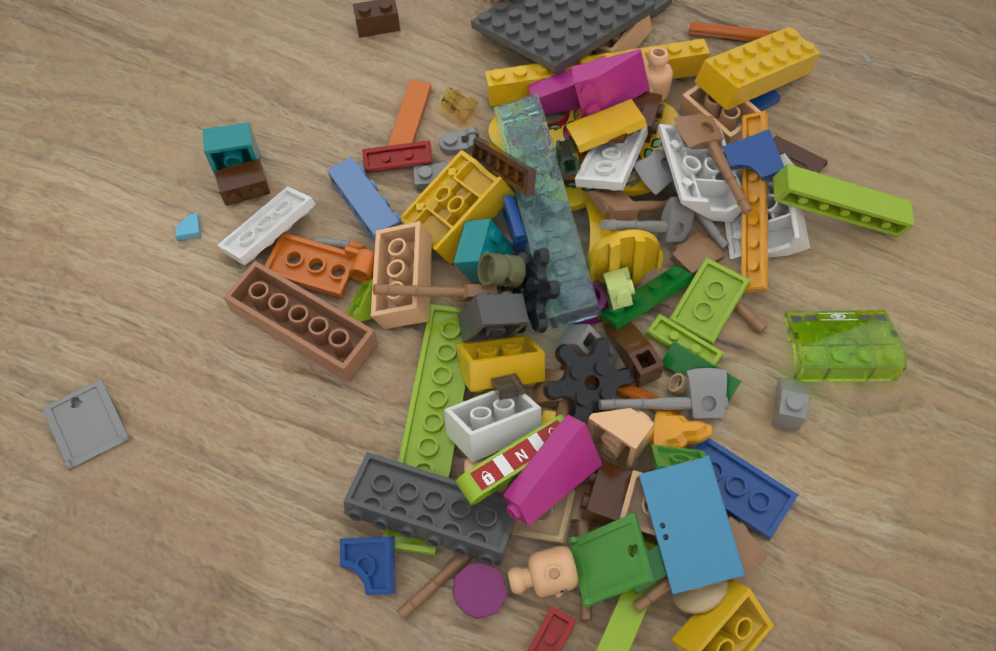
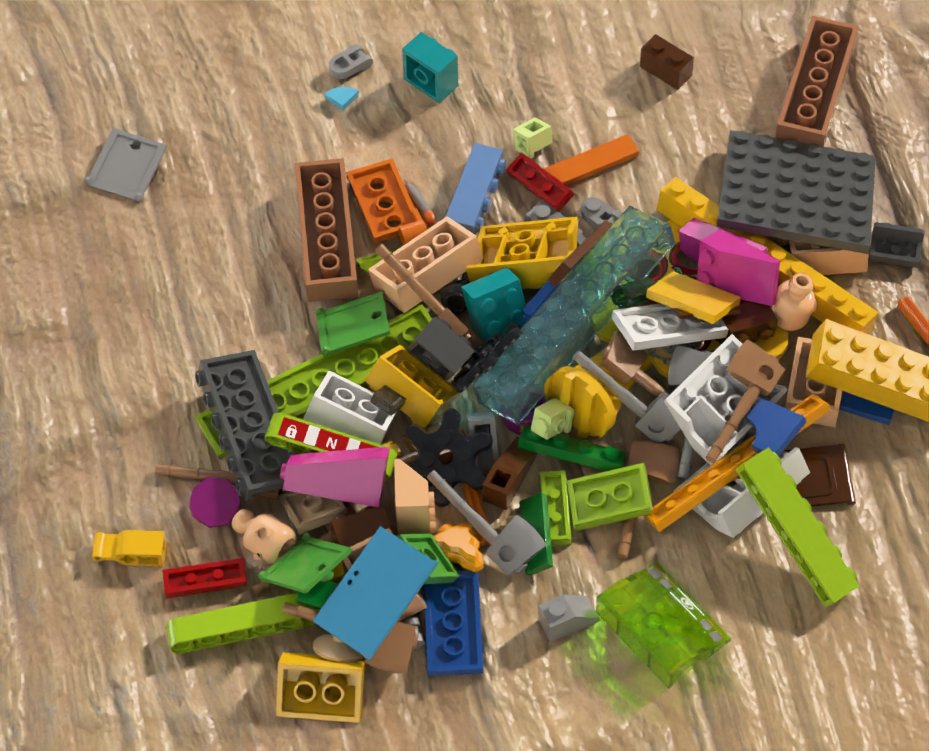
camera: 50 degrees right, 5 degrees down
(165, 207) = (343, 66): none -> light grey plate
(242, 182) = (413, 97): reddish brown brick -> none
(266, 225) = (388, 143): white plate -> none
(355, 134) = (532, 137): none -> yellowish green brick
(372, 560) = (178, 420): blue tile -> none
(403, 367) = (352, 323): none -> bright green container
(446, 274) = (453, 297): none -> black animal
(454, 101) = (637, 190): clear yellow plate -> none
(501, 270) = (480, 320): olive wheel -> none

